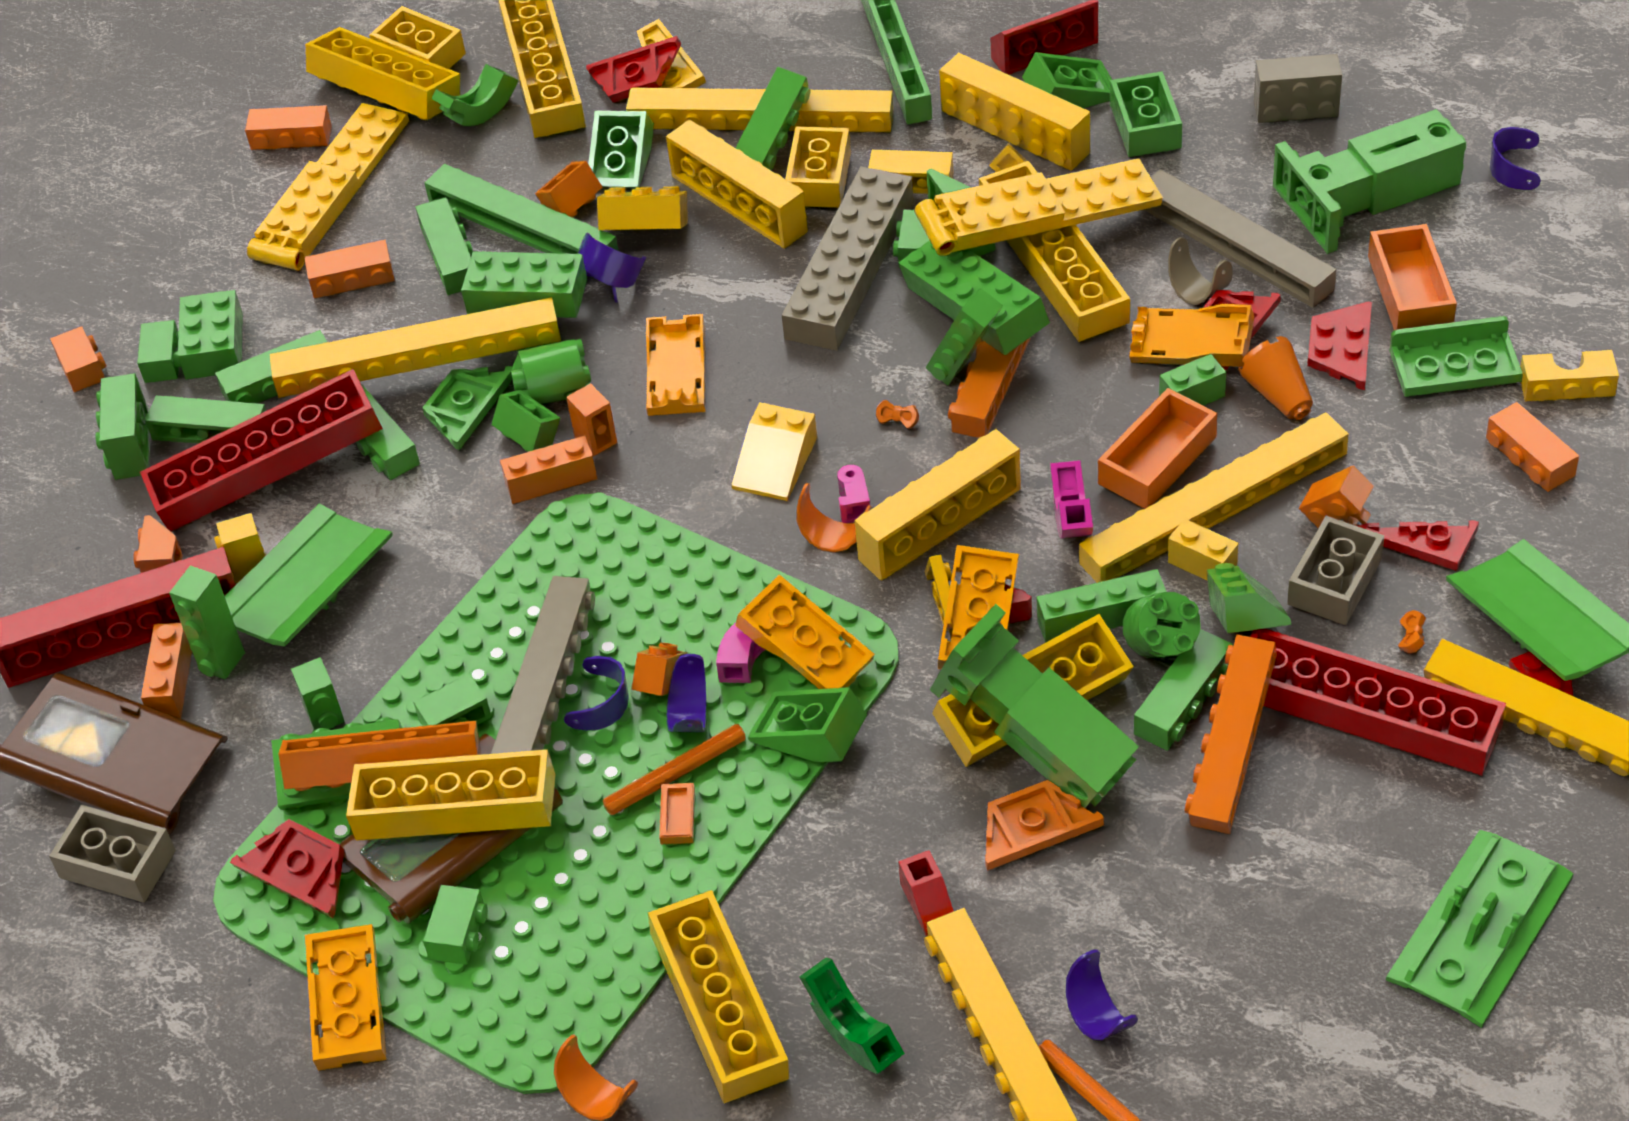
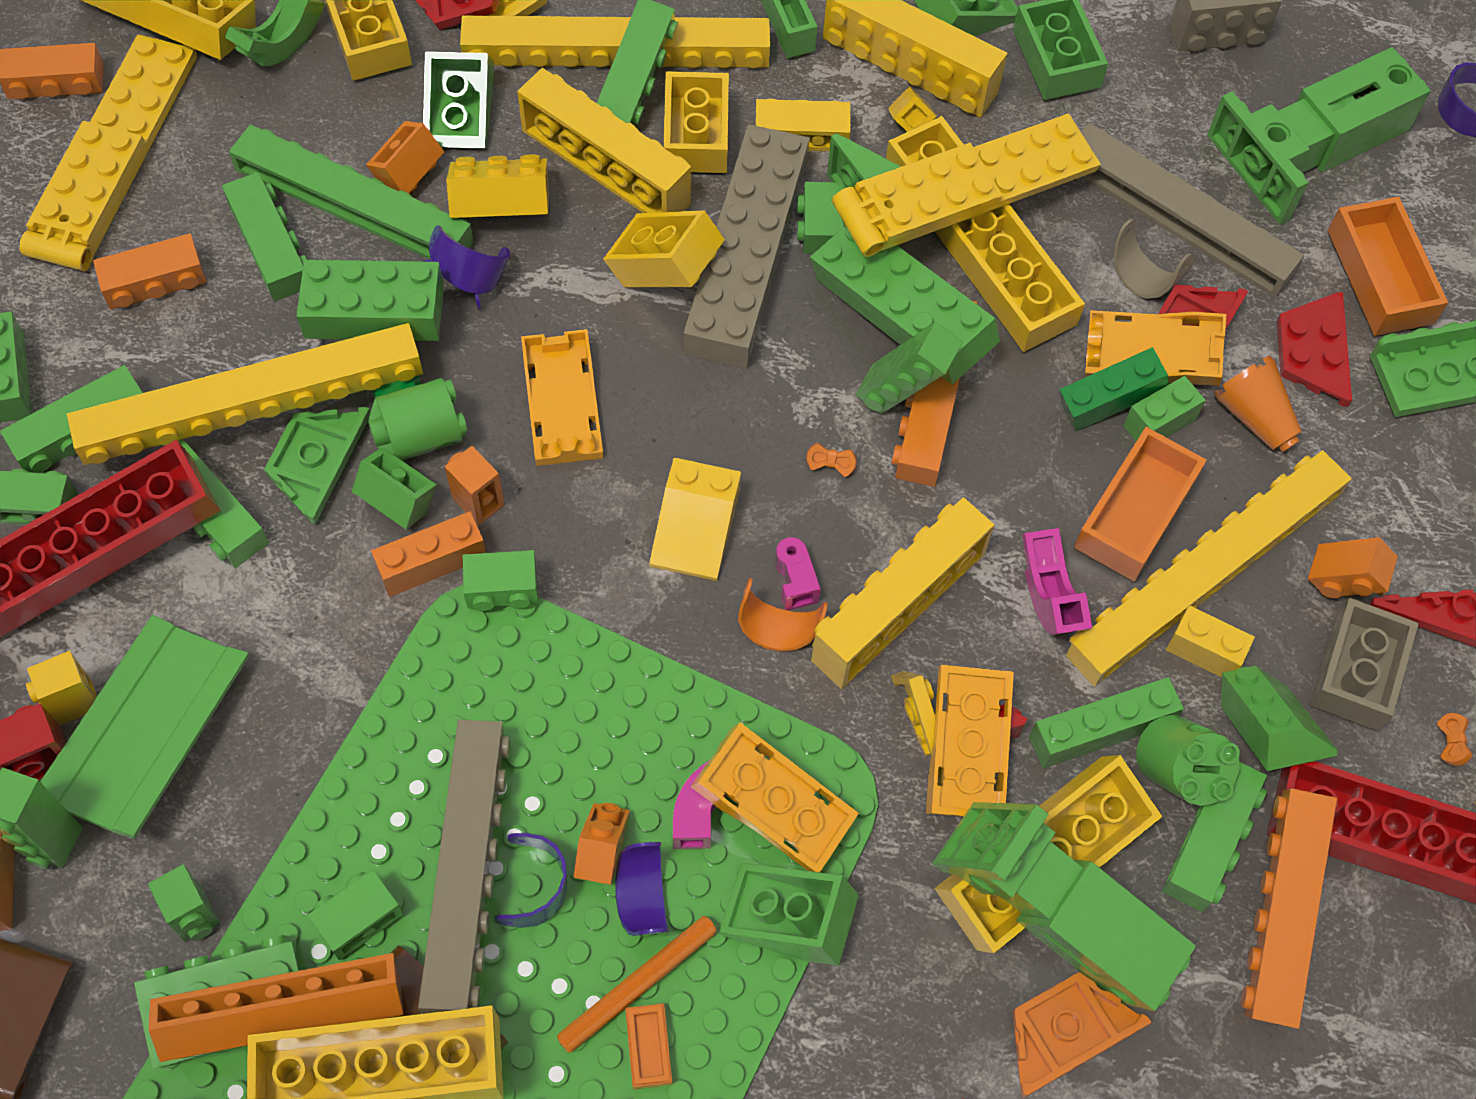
camera: 15 degrees left, 15 degrees up
(603, 485) = (500, 579): none -> bright green brick
(774, 254) = (664, 249): none -> yellow brick
(1142, 364) = (1113, 389): none -> green brick

